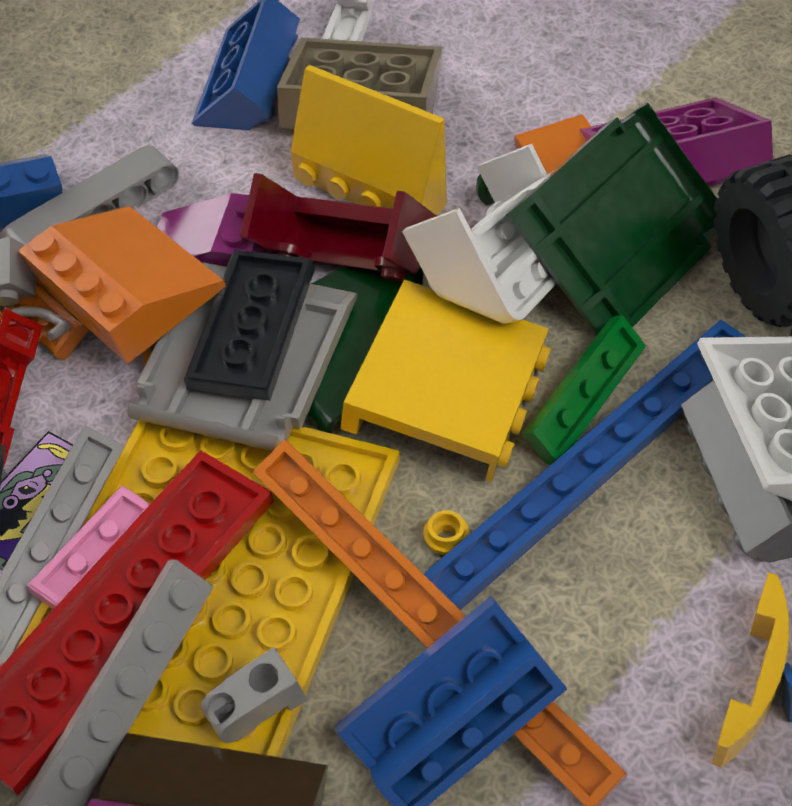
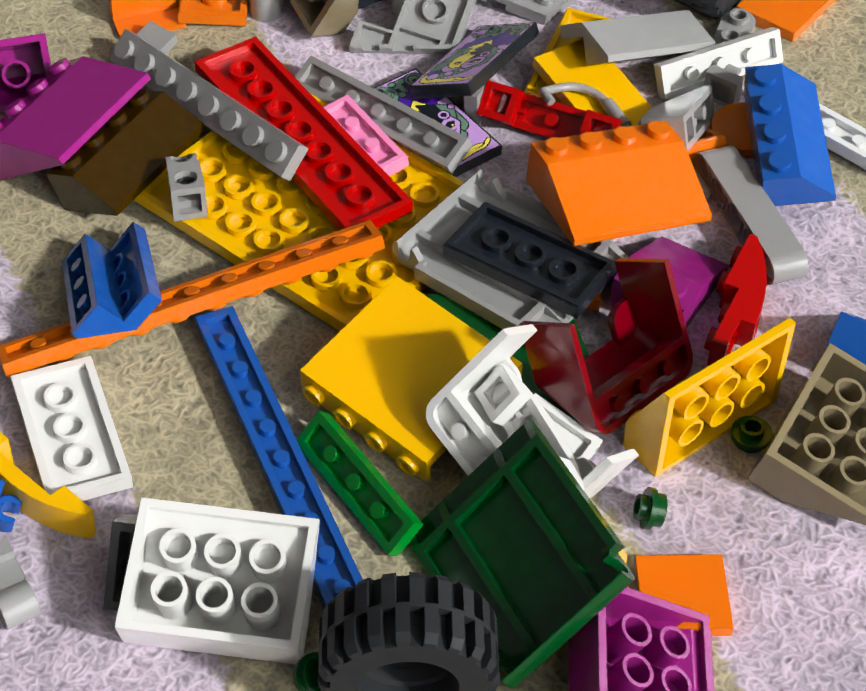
camera: 105 degrees right, 5 degrees down
(209, 178) = (741, 300): none -> red slope
(444, 521) = (269, 339): yellow plate -> none
(661, 670) = (71, 429): none -> white plate

